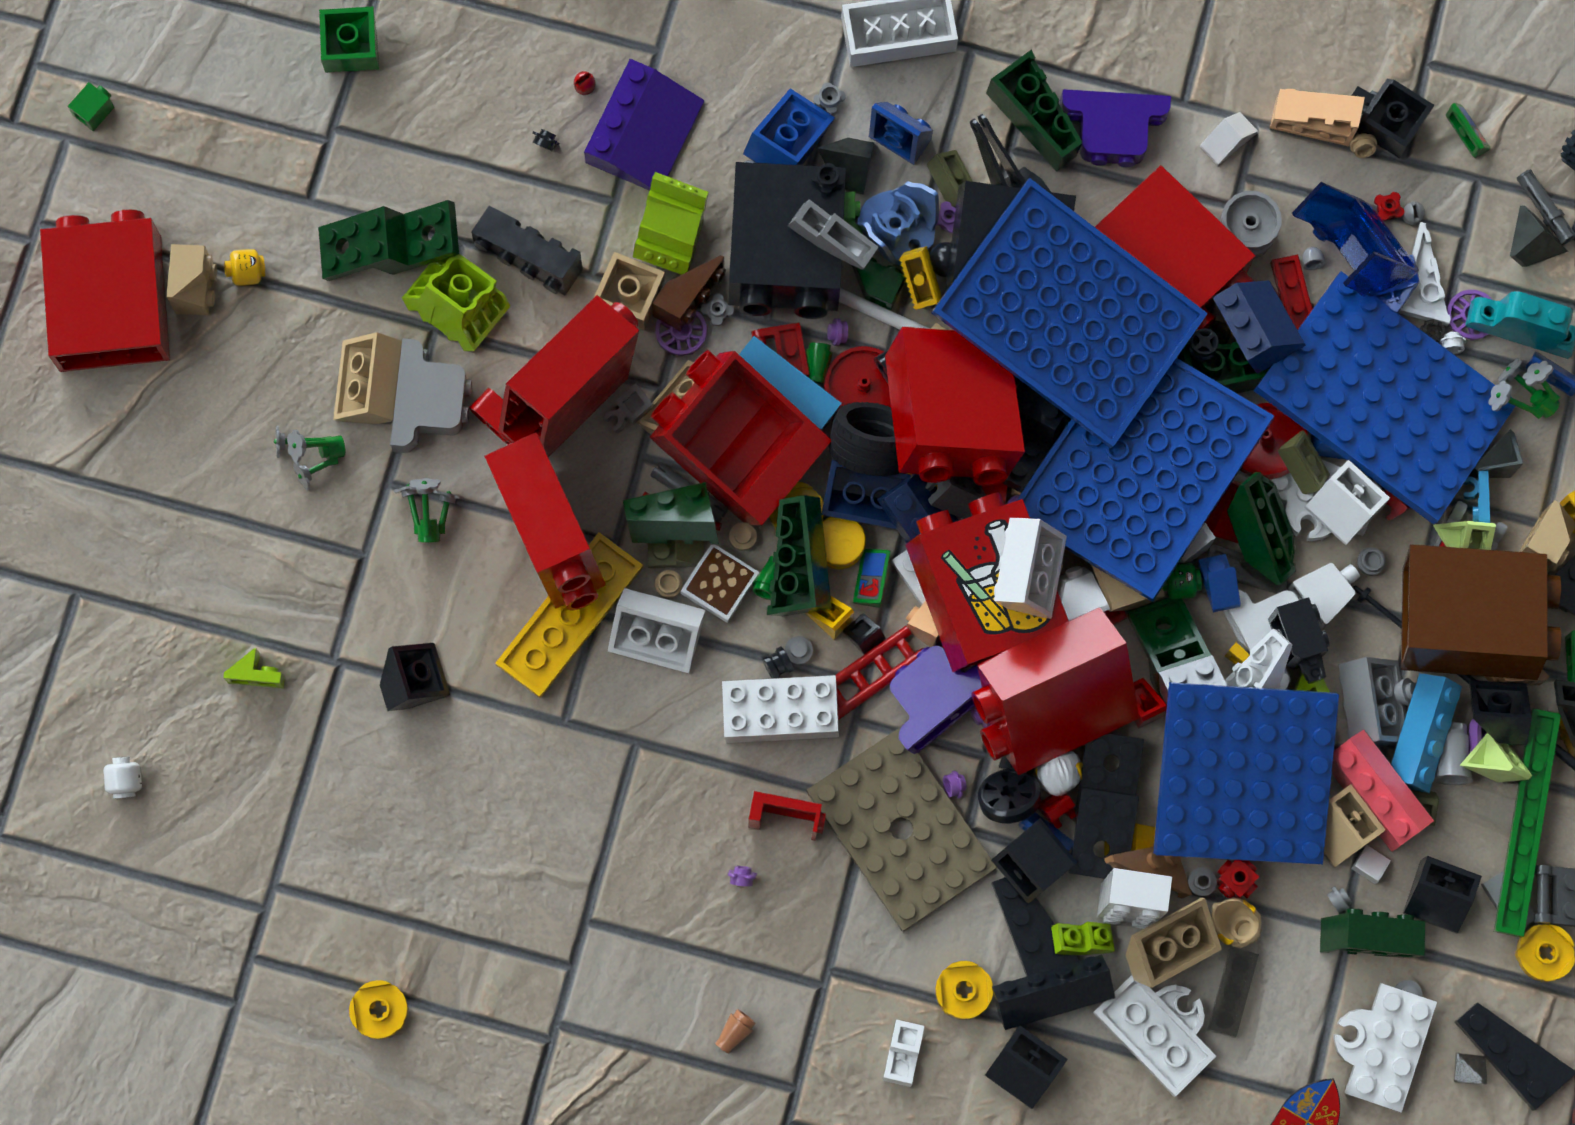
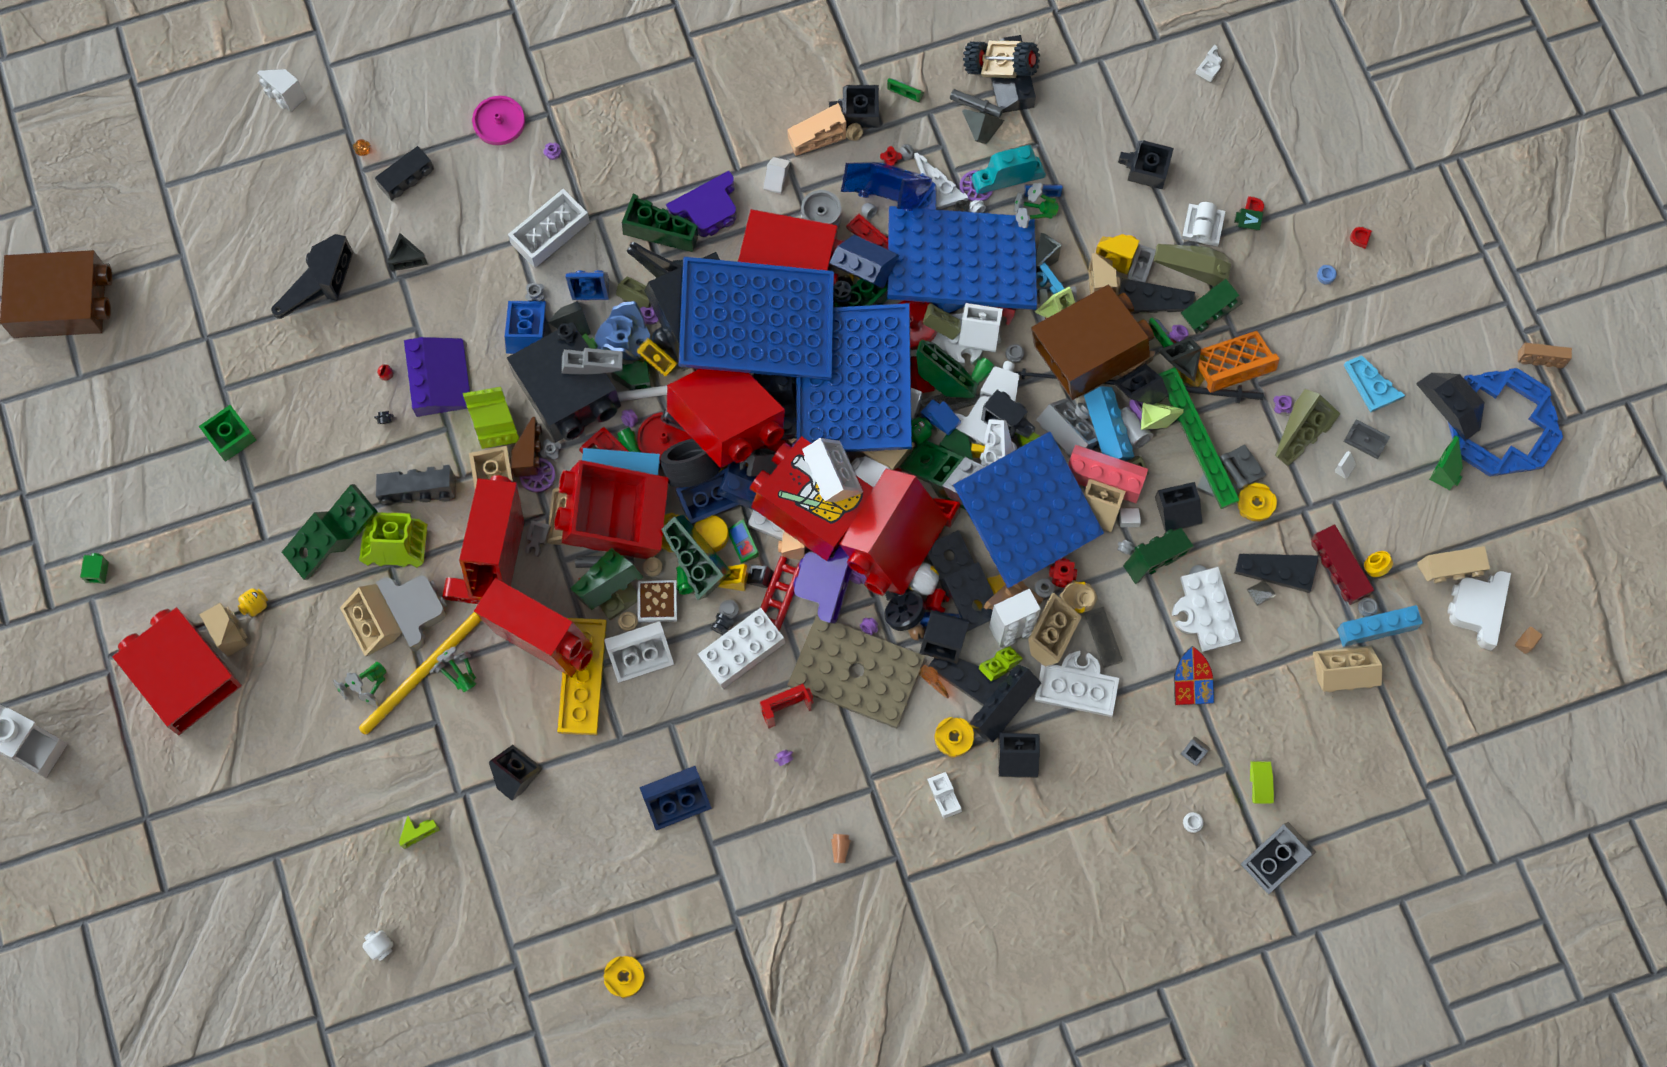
camera: 30 degrees left, 5 degrees down
(377, 485) = (418, 675): none -> yellow piece
(580, 837) = (675, 798): none -> dark blue slope
(986, 896) = (930, 675): none -> clear orange plate
(1007, 829) = (918, 630): none -> medium nougat hinge
(1217, 632) = (957, 443): none -> dark green slope
(1313, 556) = (982, 370): none -> green cone

